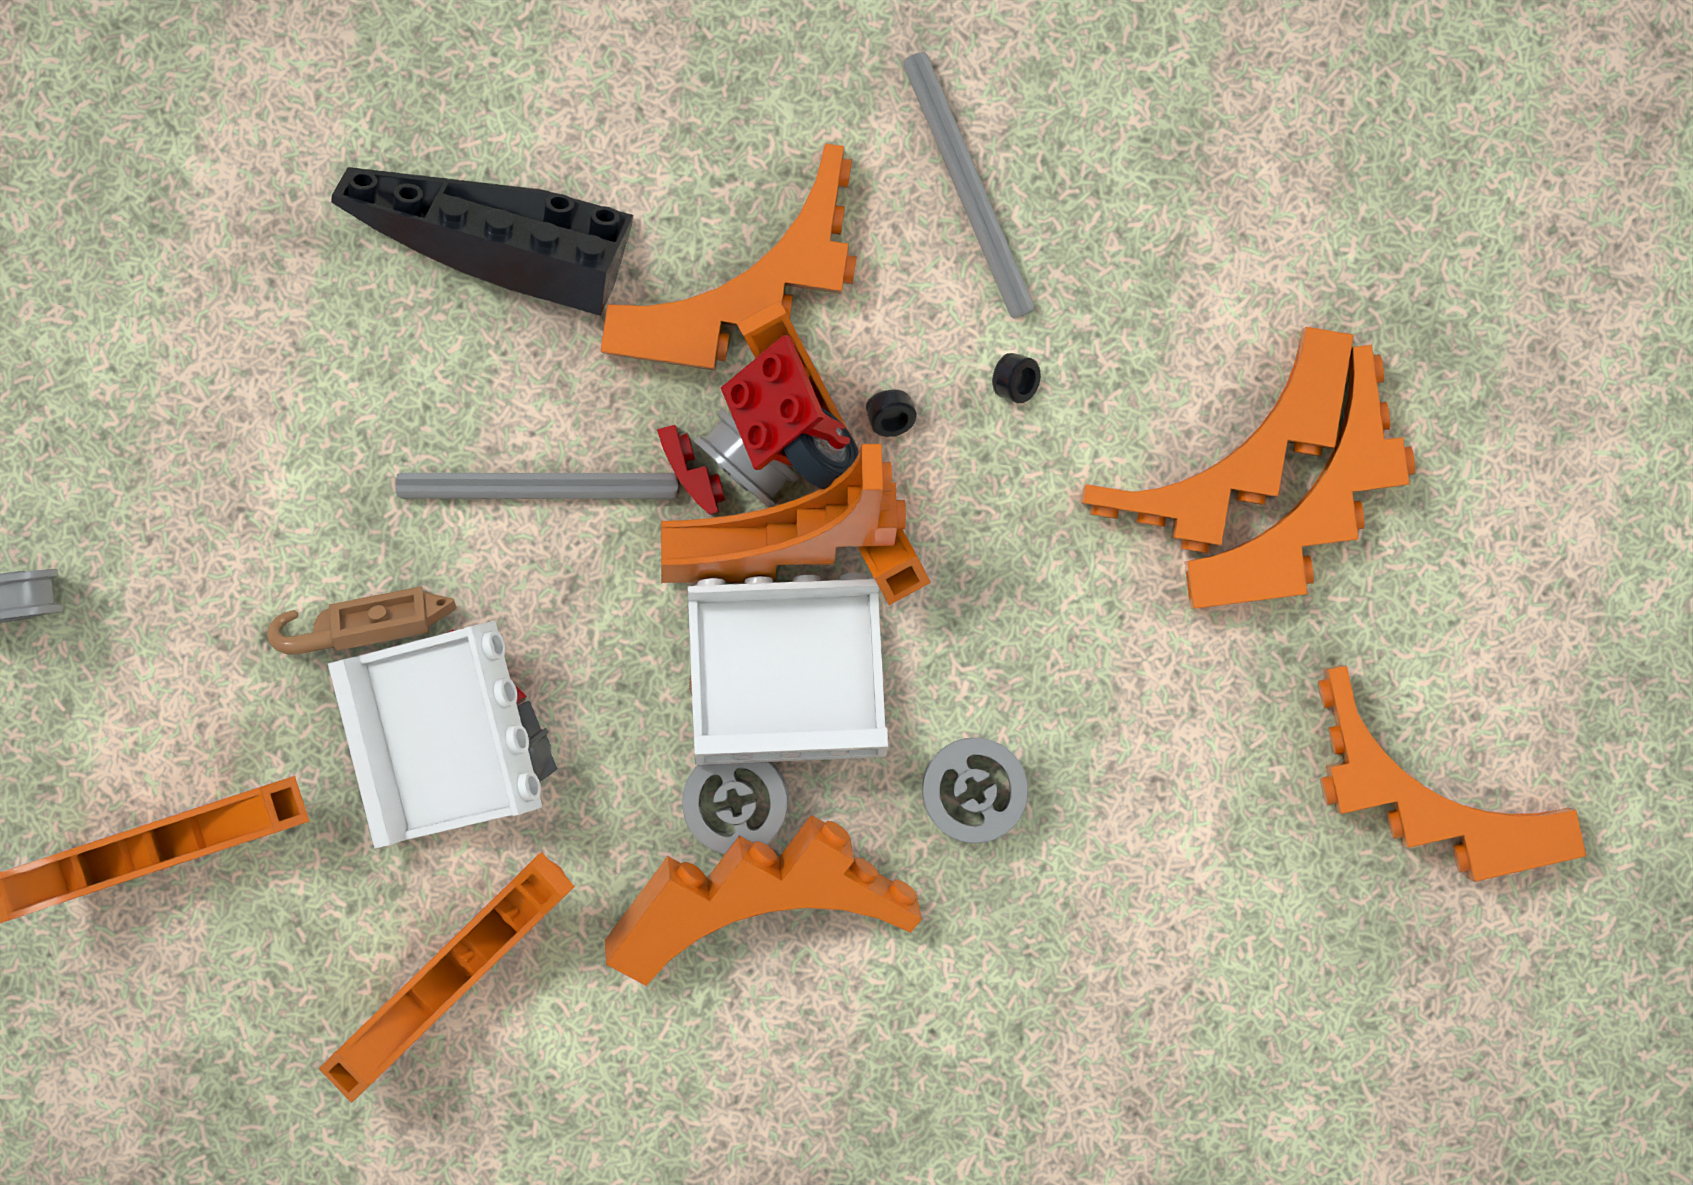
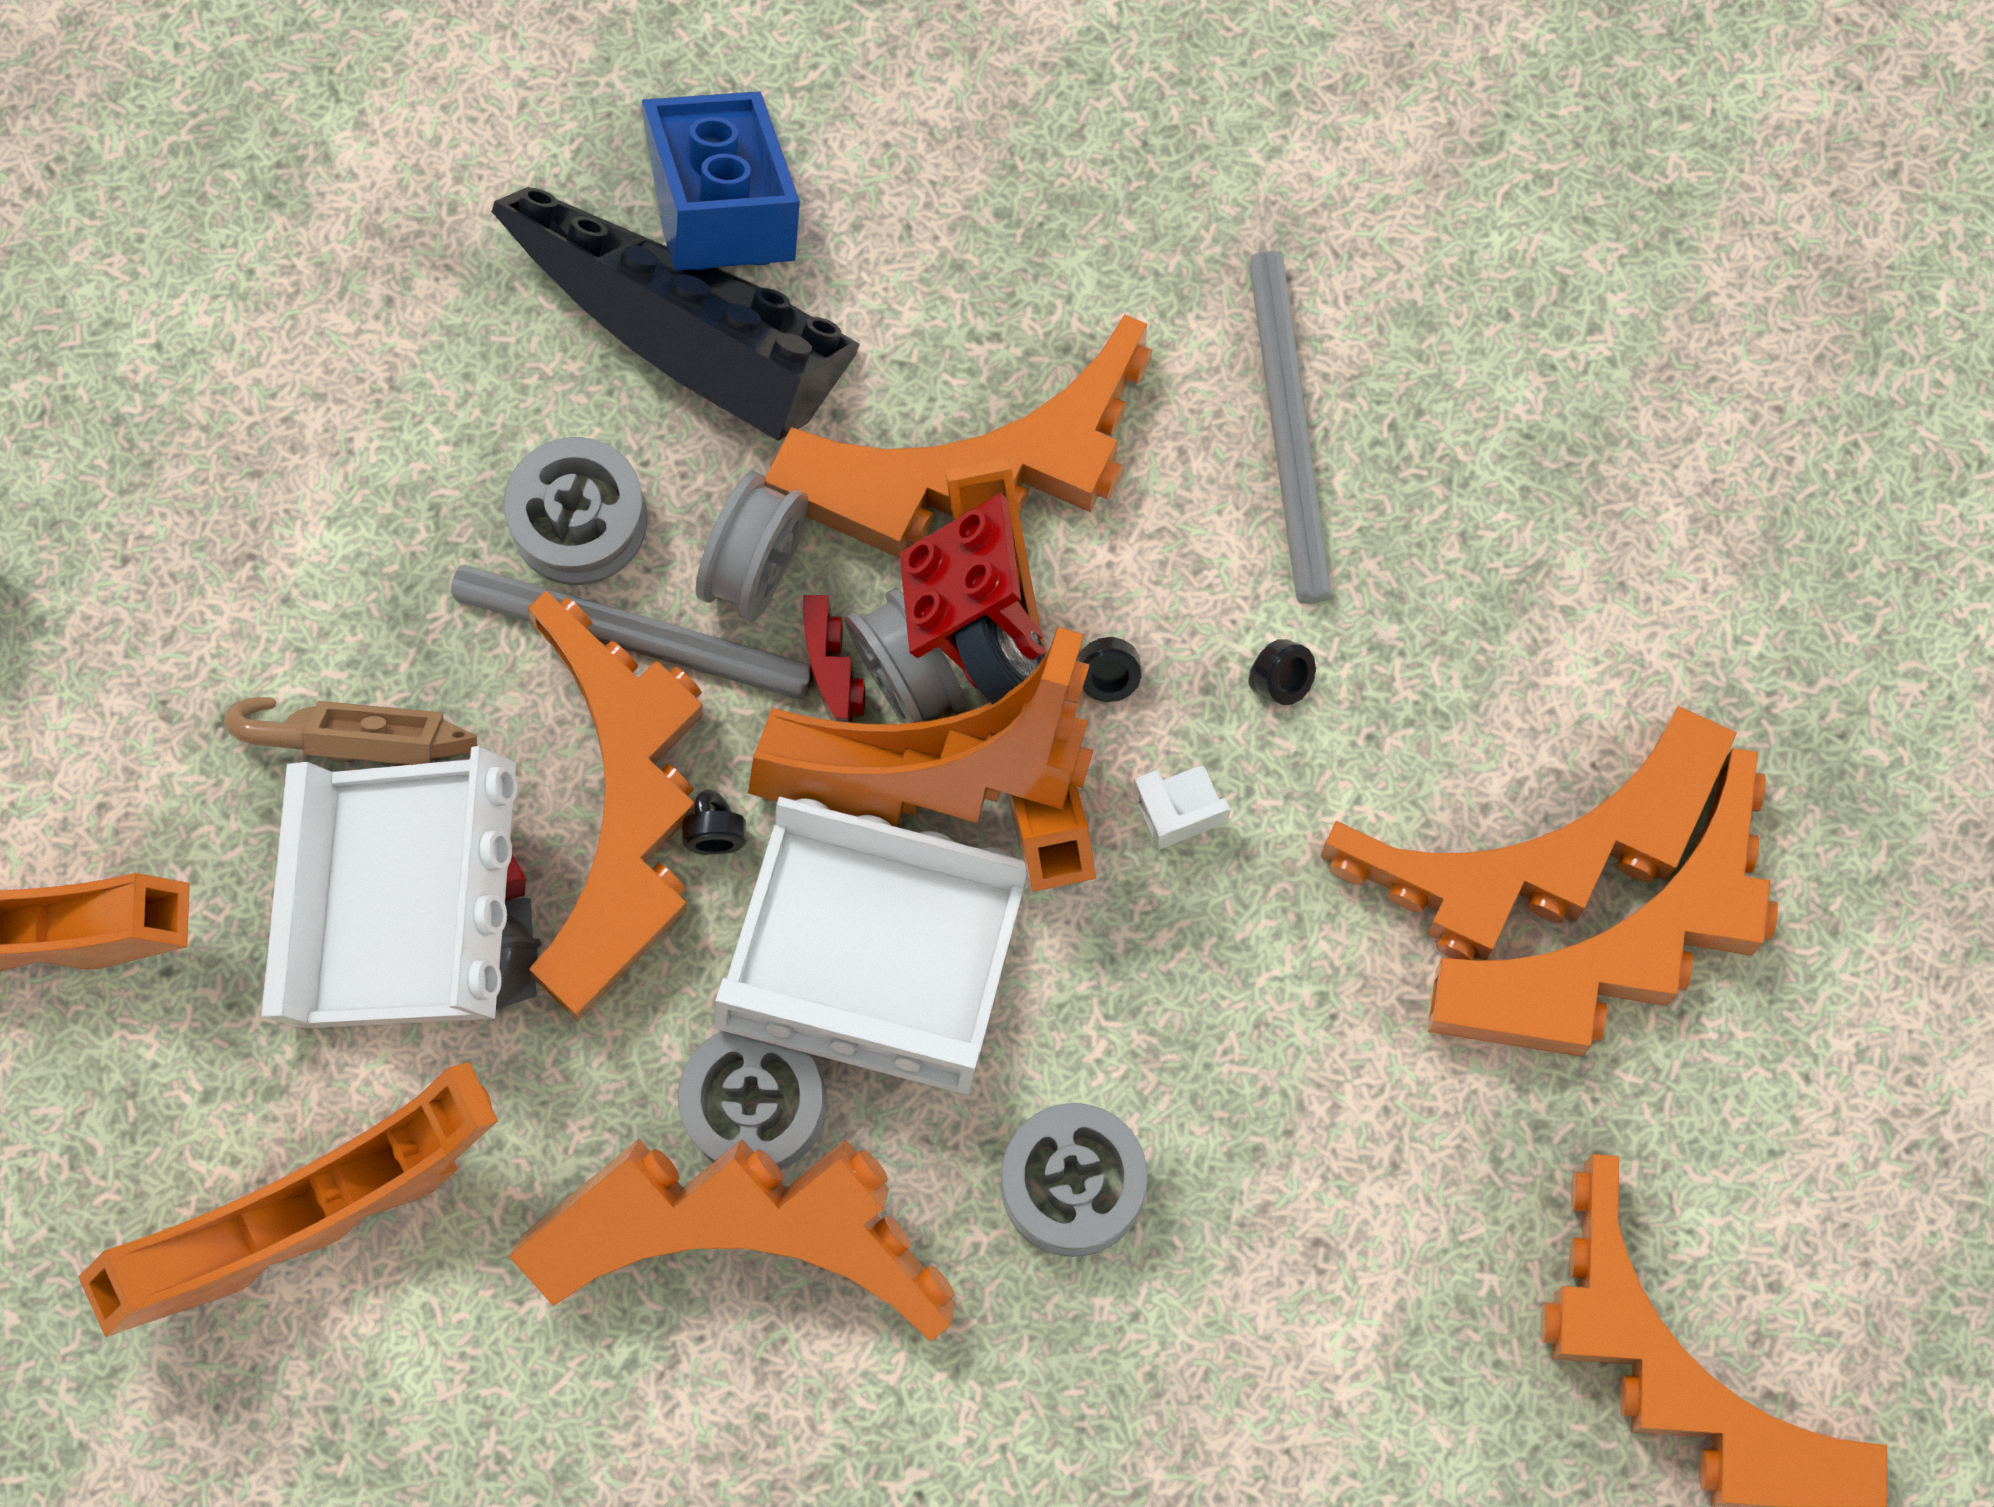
camera: 15 degrees right, 15 degrees down
(489, 119) = (720, 181): none -> blue slope
(506, 409) = (603, 535): none -> light grey wheel
(598, 688) = (636, 724): none -> orange arch
(608, 404) = (751, 545): none -> light grey wheel
(646, 618) = (713, 831): none -> black tile
(971, 497) = (1179, 805): none -> white panel

